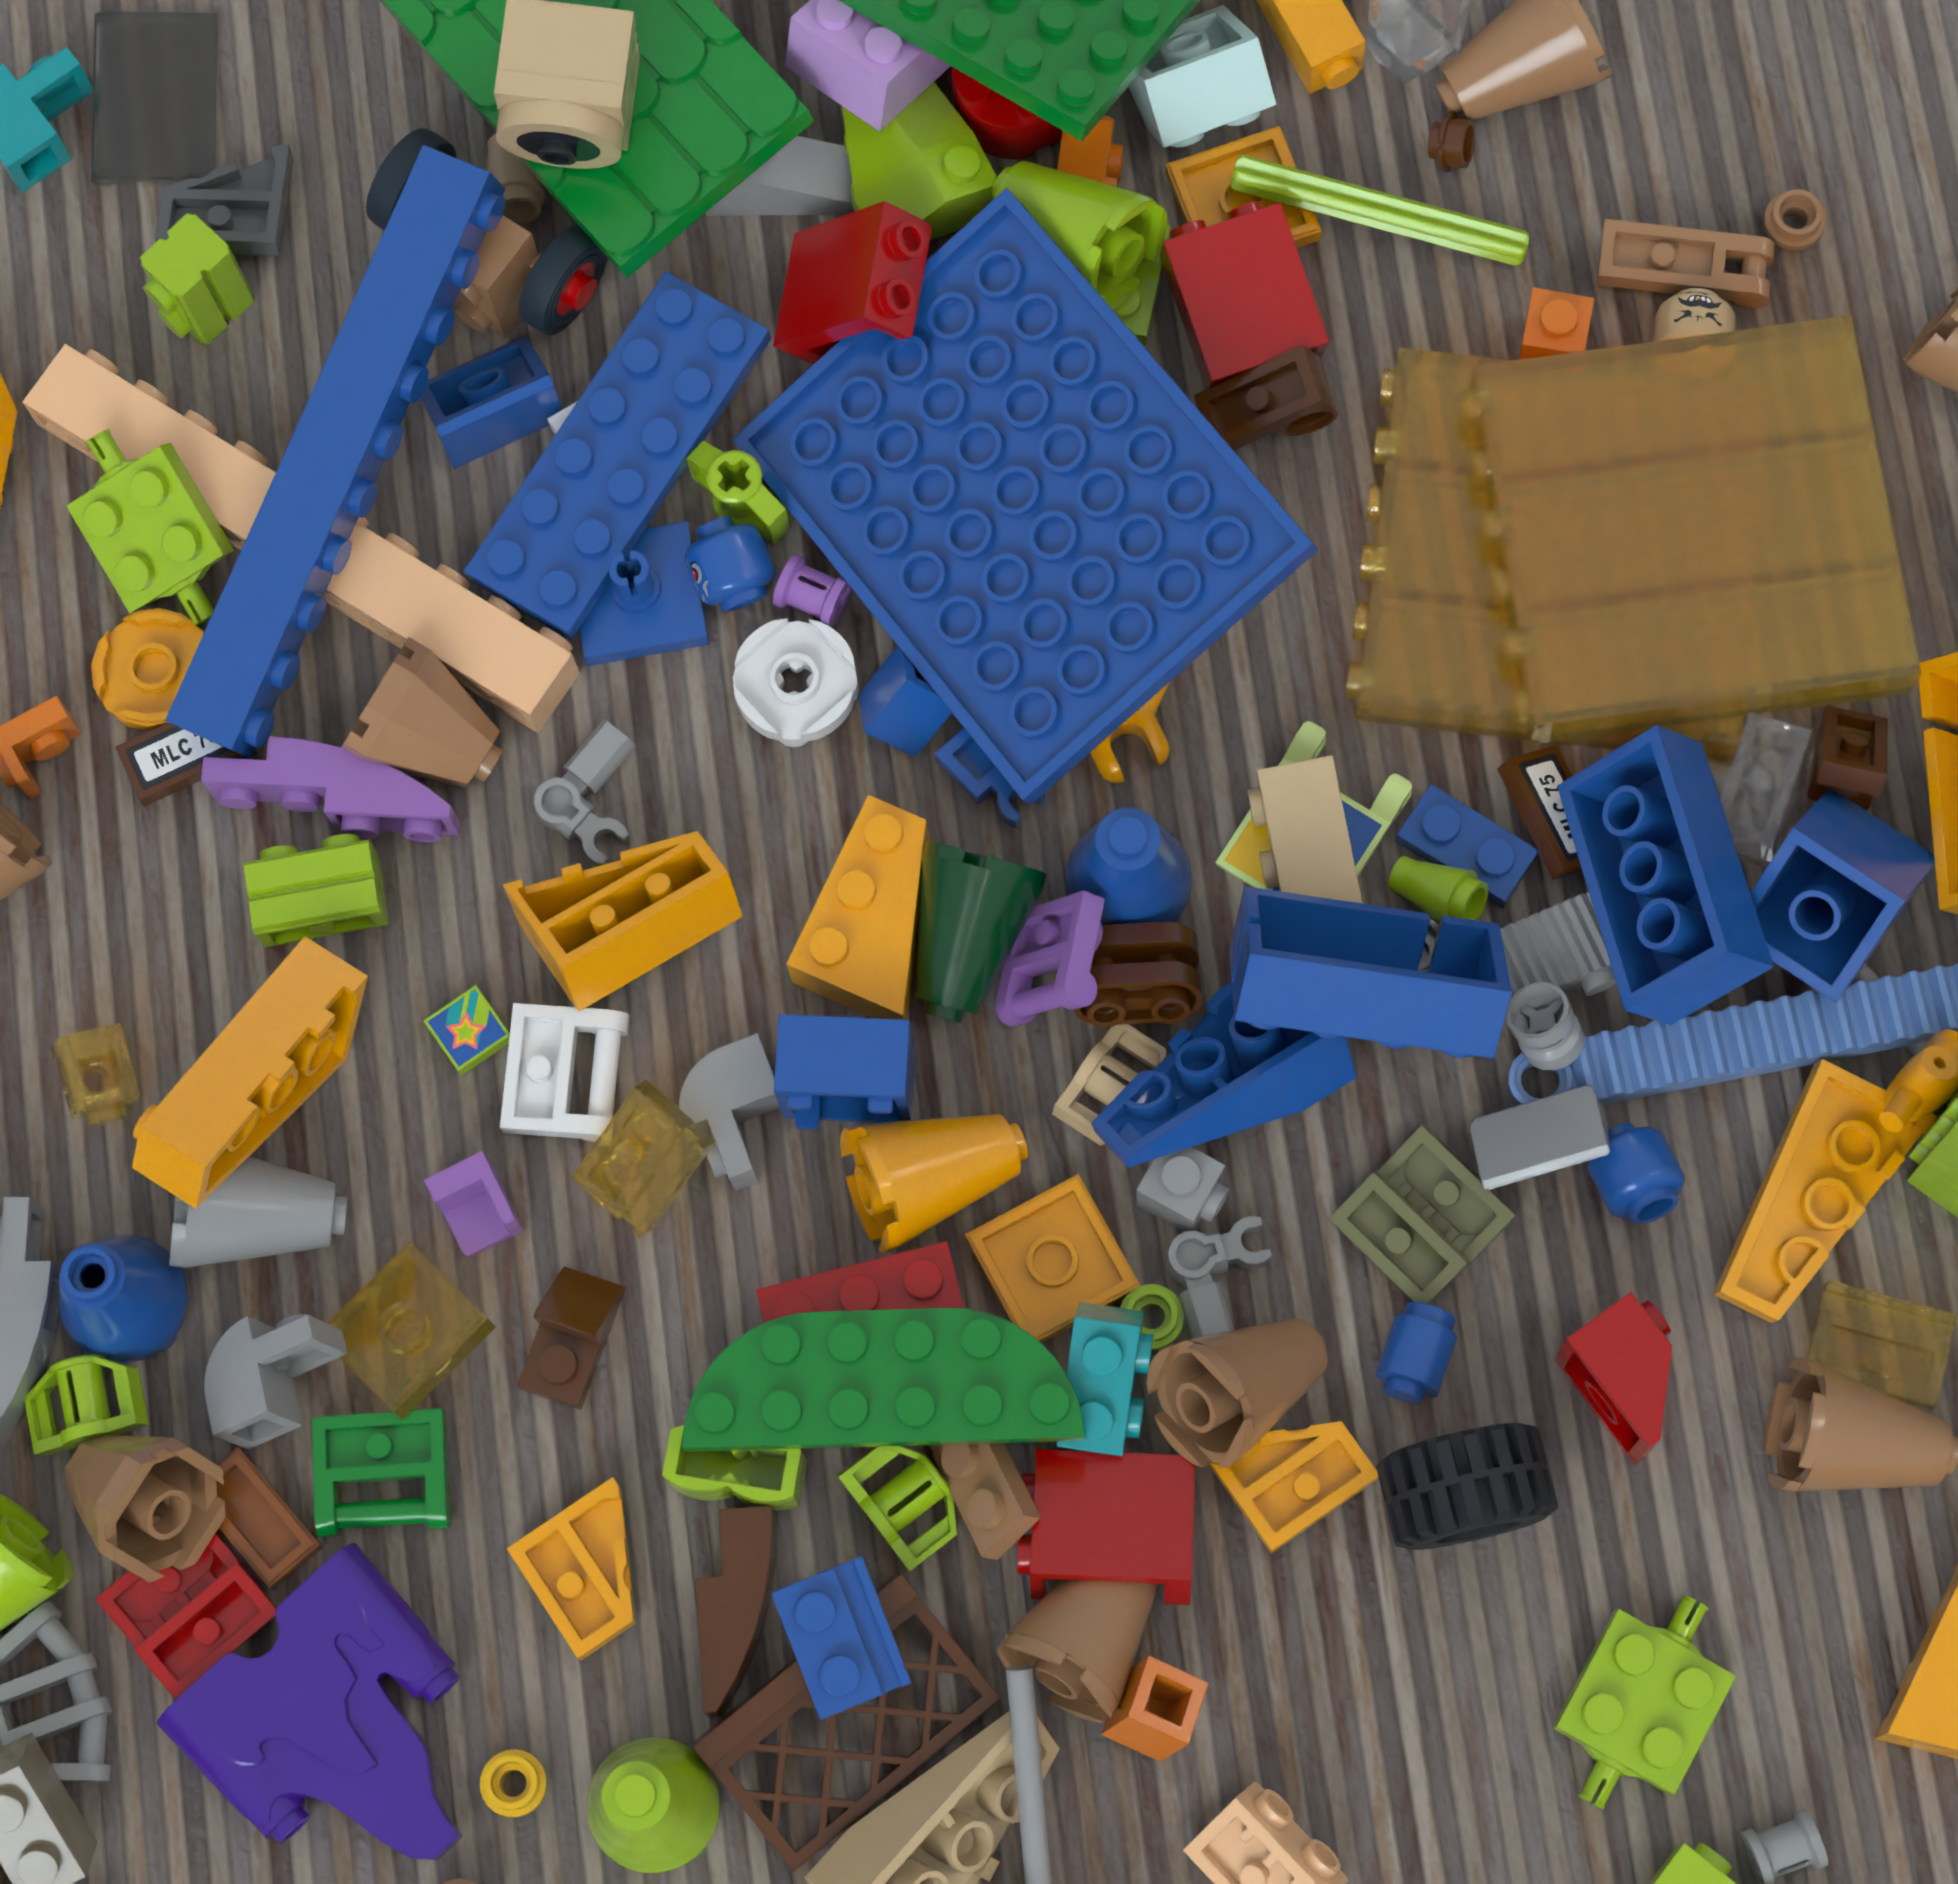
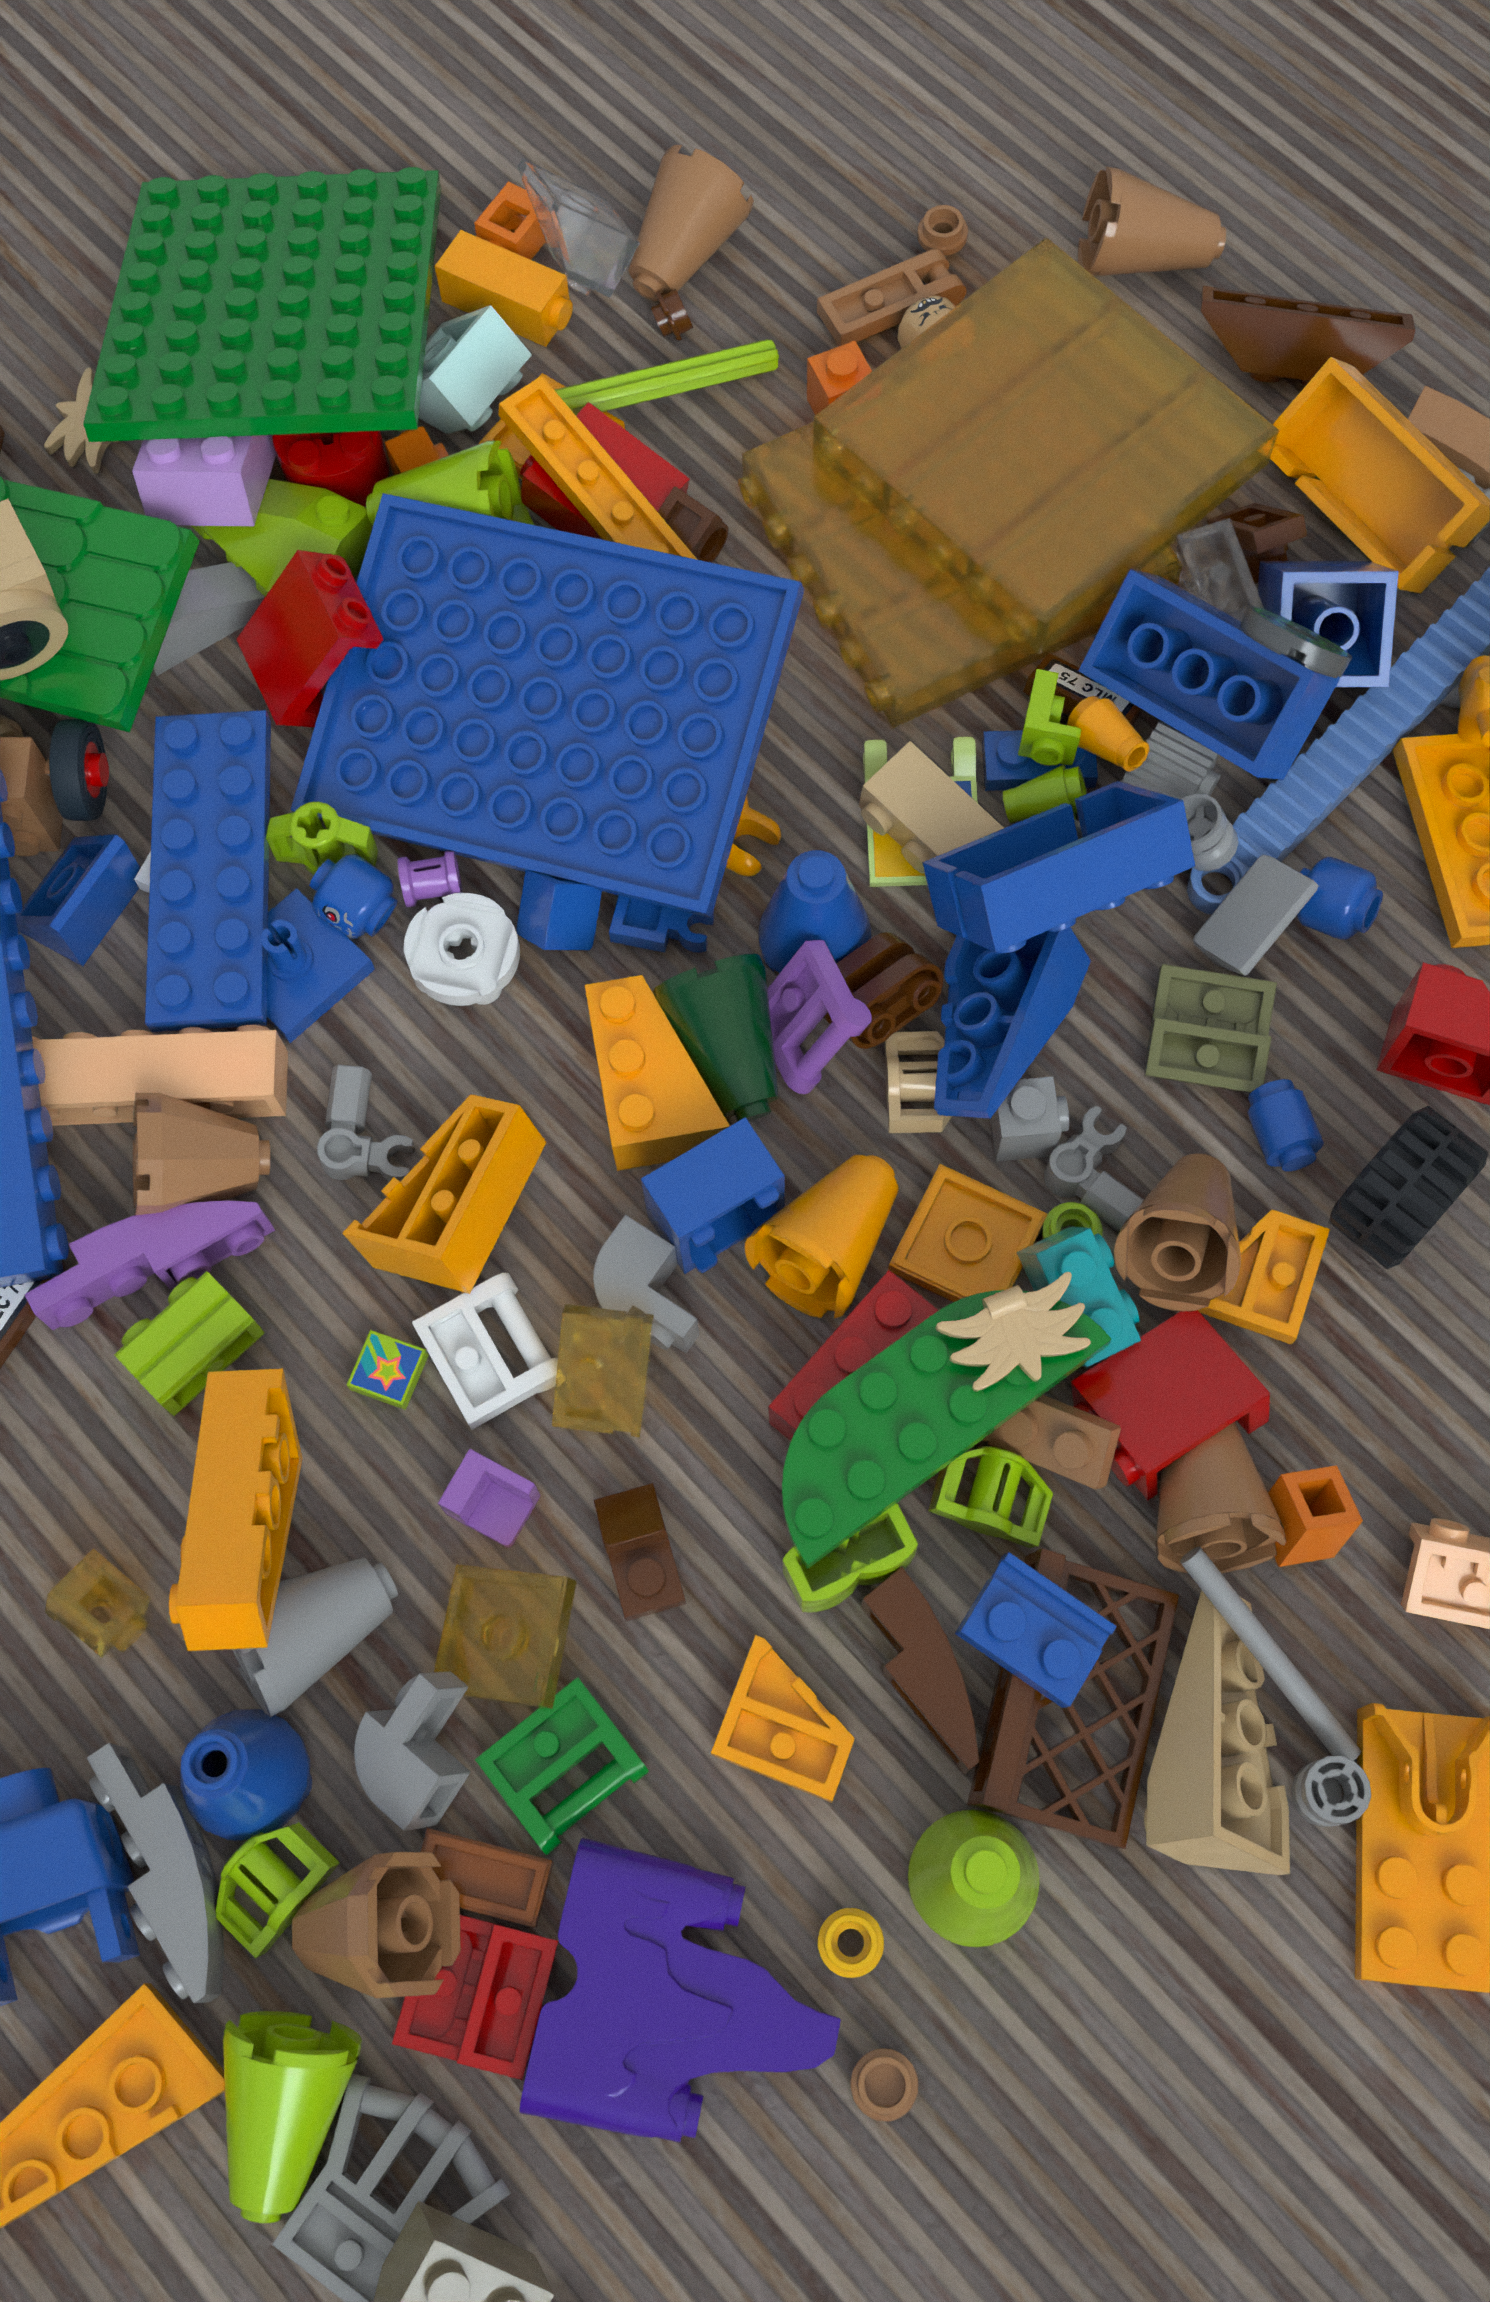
camera: 40 degrees left, 5 degrees down
(999, 1374) = (1016, 1331): none -> tan piece
(1224, 307) = (586, 470): none -> light orange plate
(1483, 807) = (1042, 734): none -> lime bracket
(1530, 868) = (1108, 733): none -> light orange cone
(1748, 905) = (1296, 641): none -> dark grey tile

